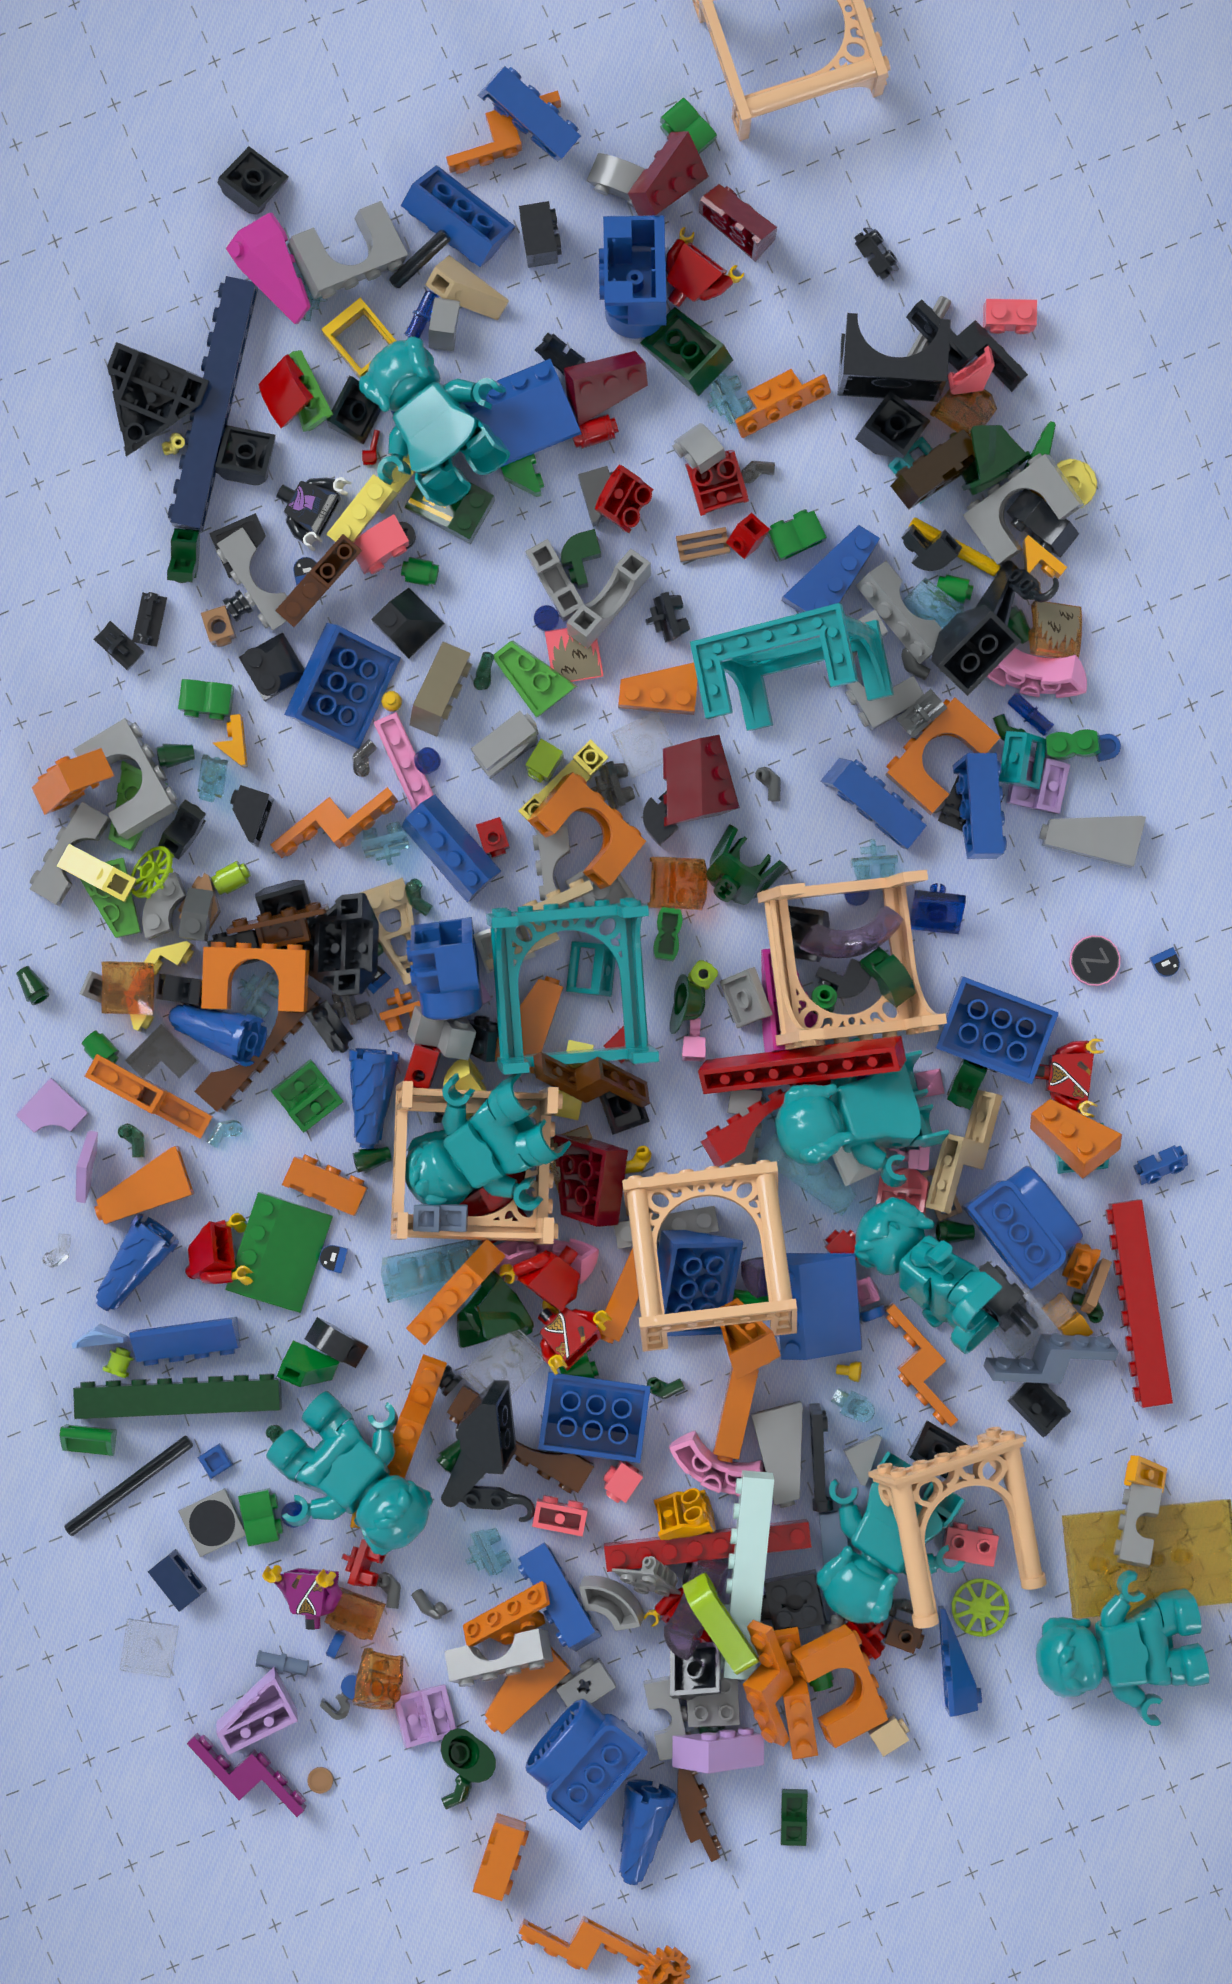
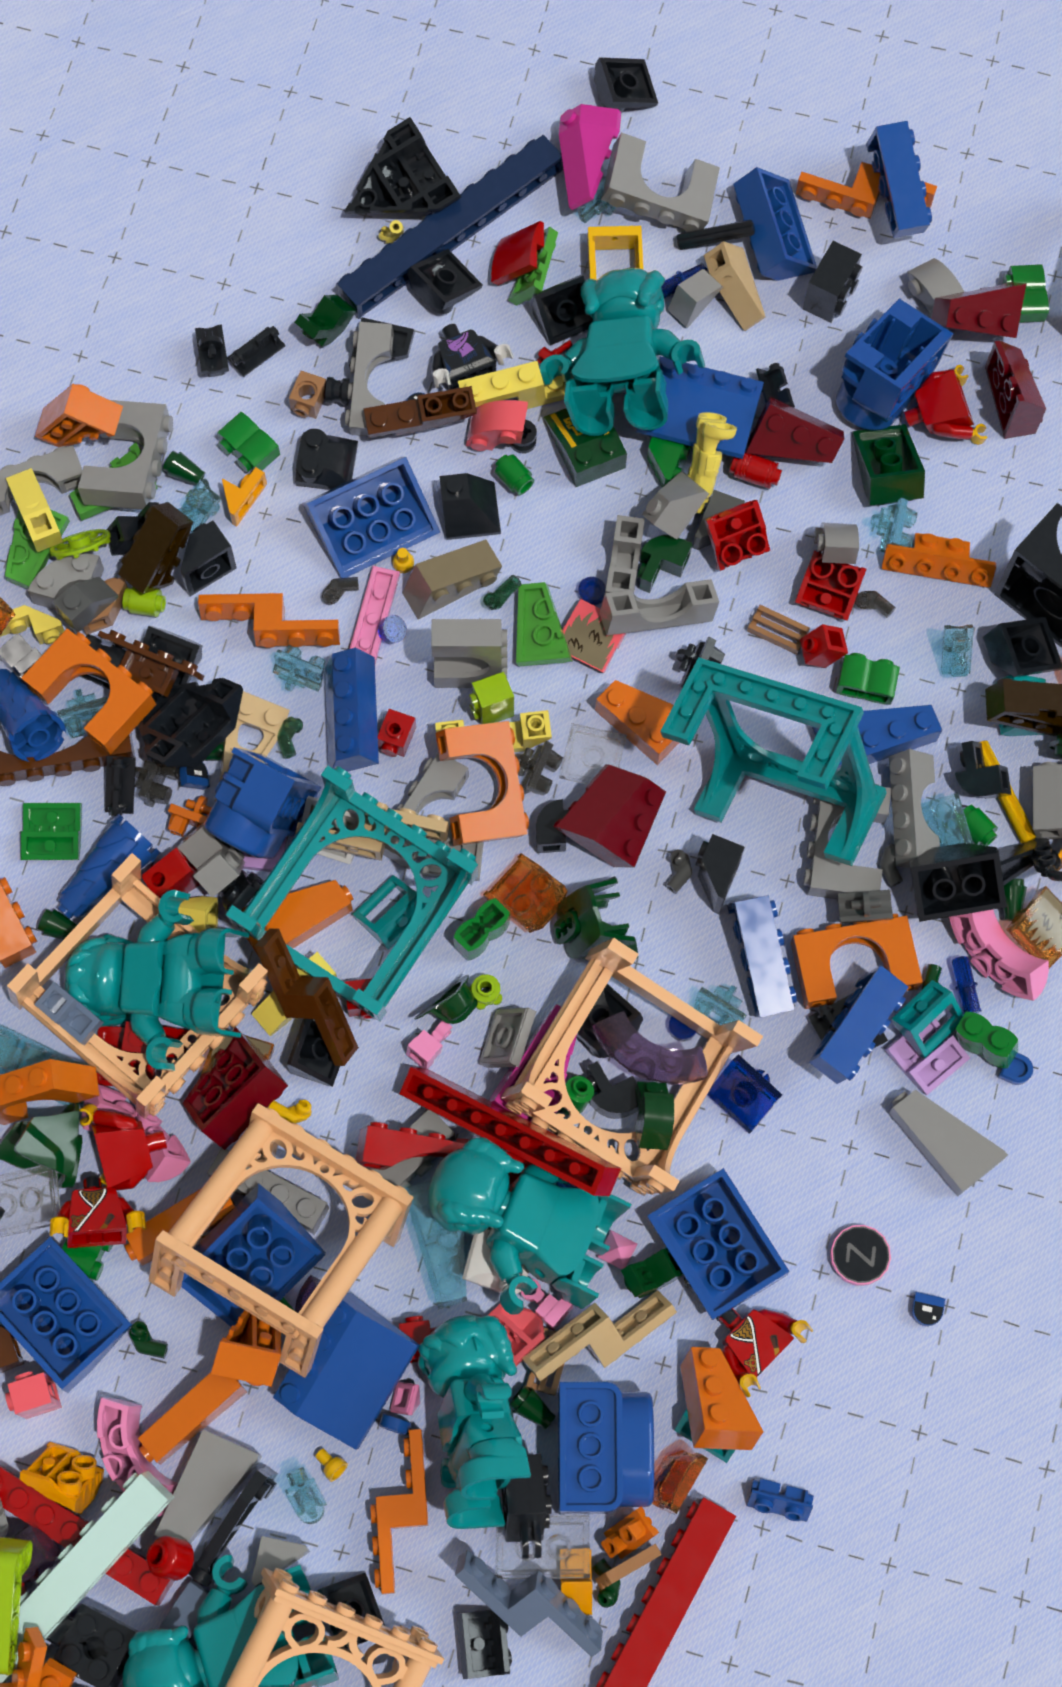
camera: 35 degrees right, 15 degrees down
(216, 838) = (156, 548): none -> dark brown wedge
(556, 457) = (705, 459): none -> light yellow piece
(562, 510) = (675, 505): none -> light grey slope
(799, 764) = (718, 867): none -> black slope
(799, 1511) = (170, 1558): none -> red head
(845, 466) = (957, 650): none -> clear light blue hips
(1085, 1205) = (675, 1479): none -> clear orange slope

